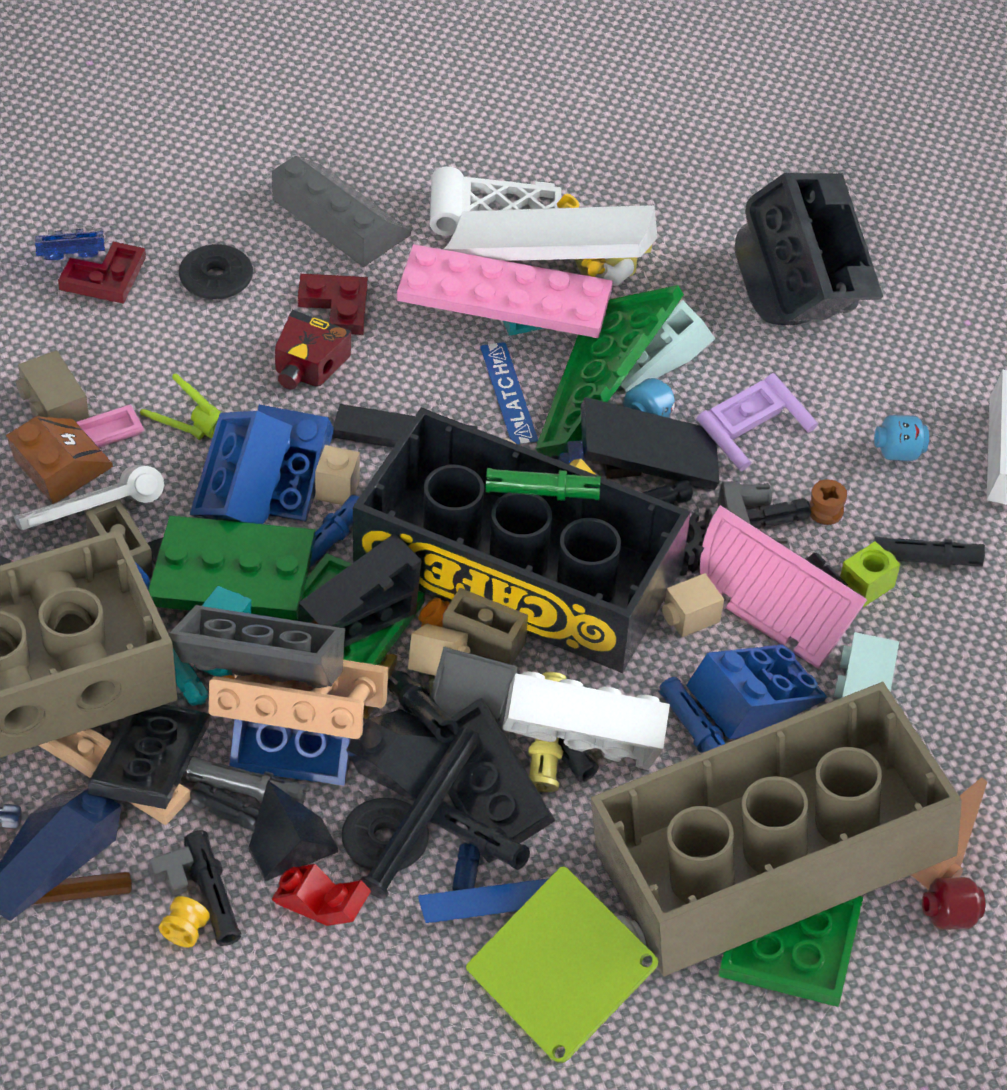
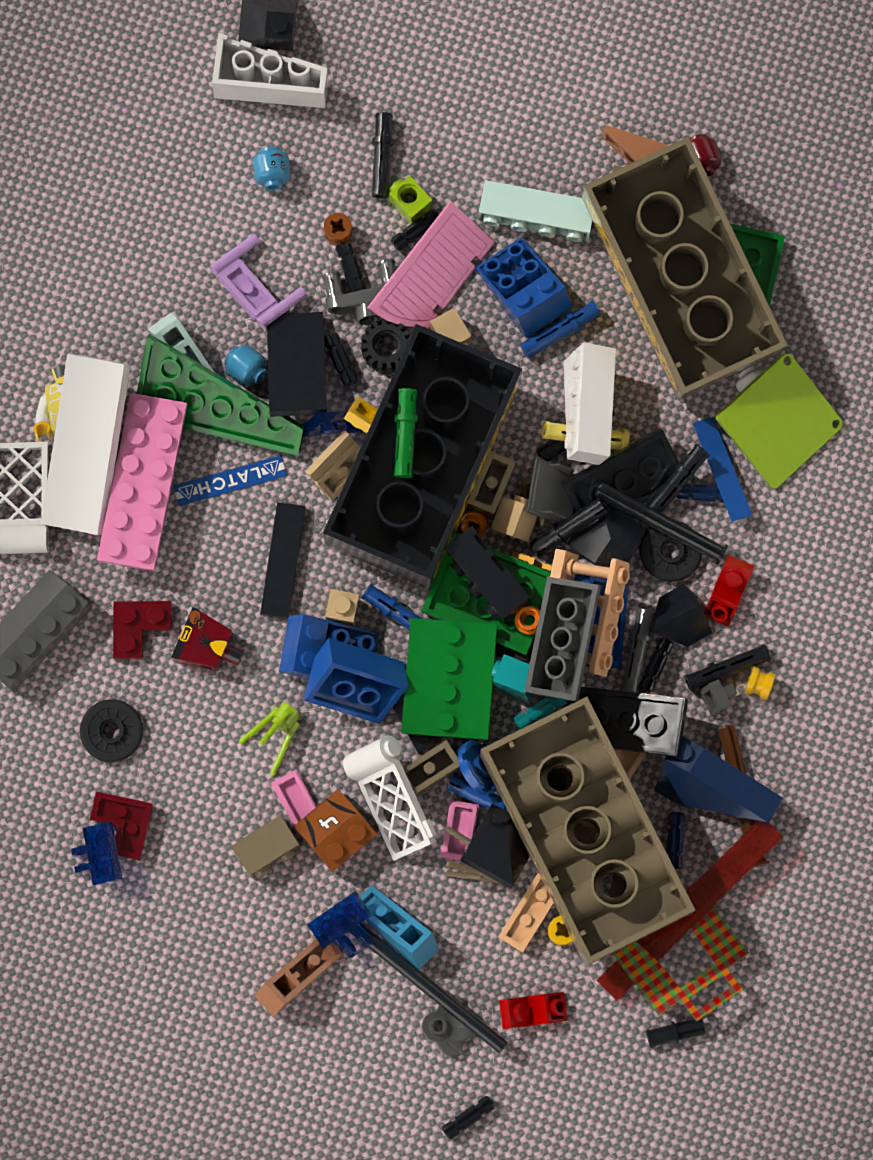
camera: 90 degrees left, 30 degrees up
(804, 250) = (95, 233): black brick -> none

